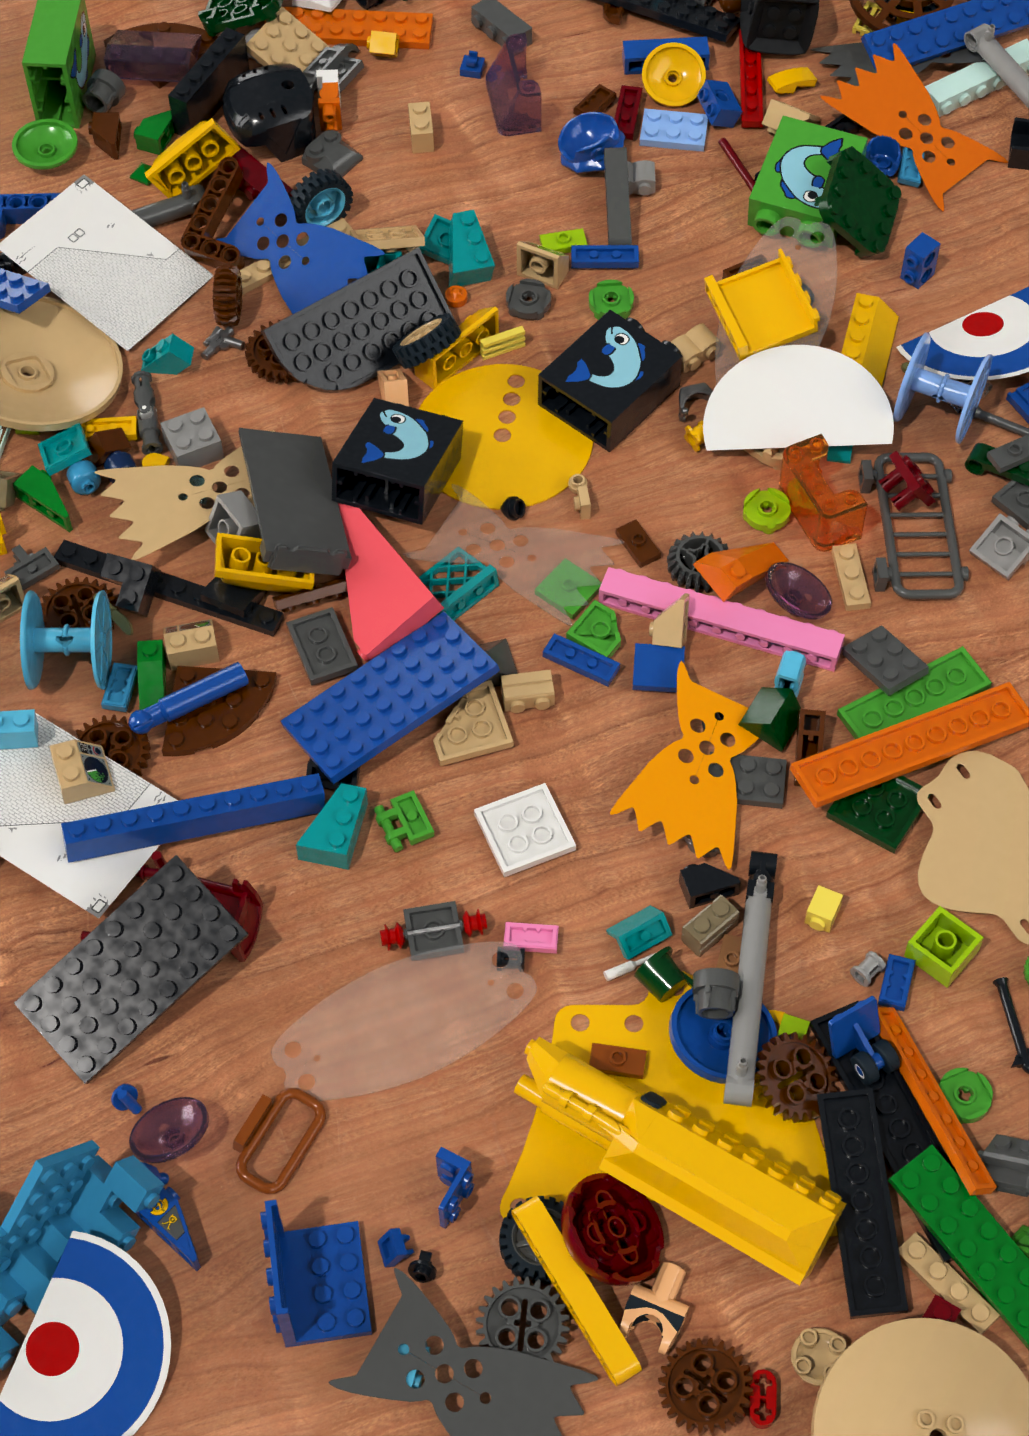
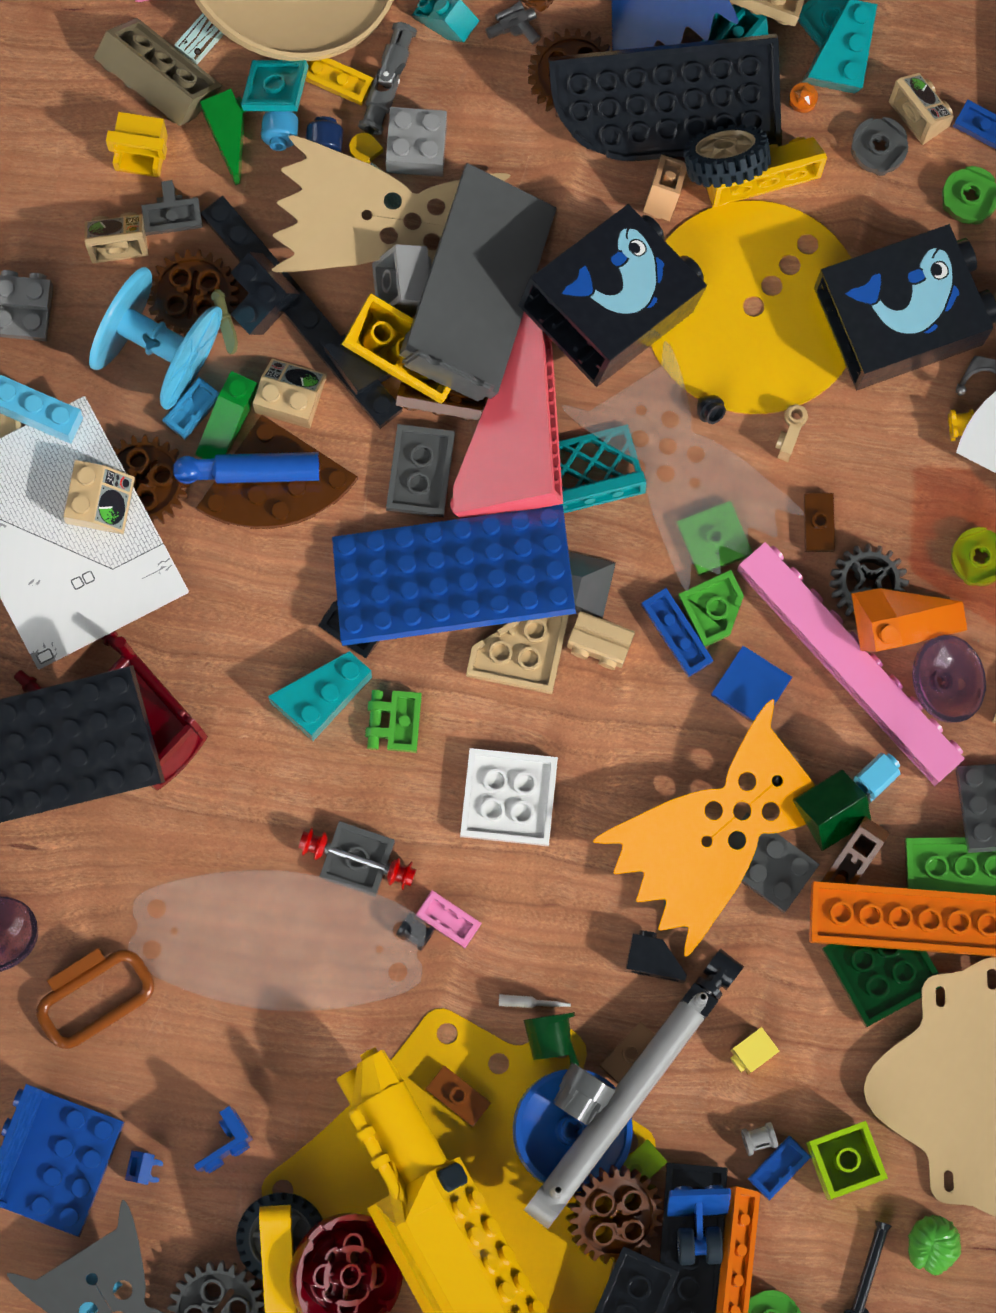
camera: 25 degrees right, 20 degrees up
(105, 442) = (324, 102): reddish brown slope -> none
(192, 817) = (183, 609): blue brick -> none
(422, 1269) = (155, 1205): black plate -> none
(502, 342) = (818, 190): light yellow tile -> none
(563, 240) = (963, 85): lime plate -> none
(640, 931) = (559, 971): teal panel -> none
(671, 624) = (790, 647): tan slope -> none
(710, 925) = (630, 1006): dark tan brick -> none

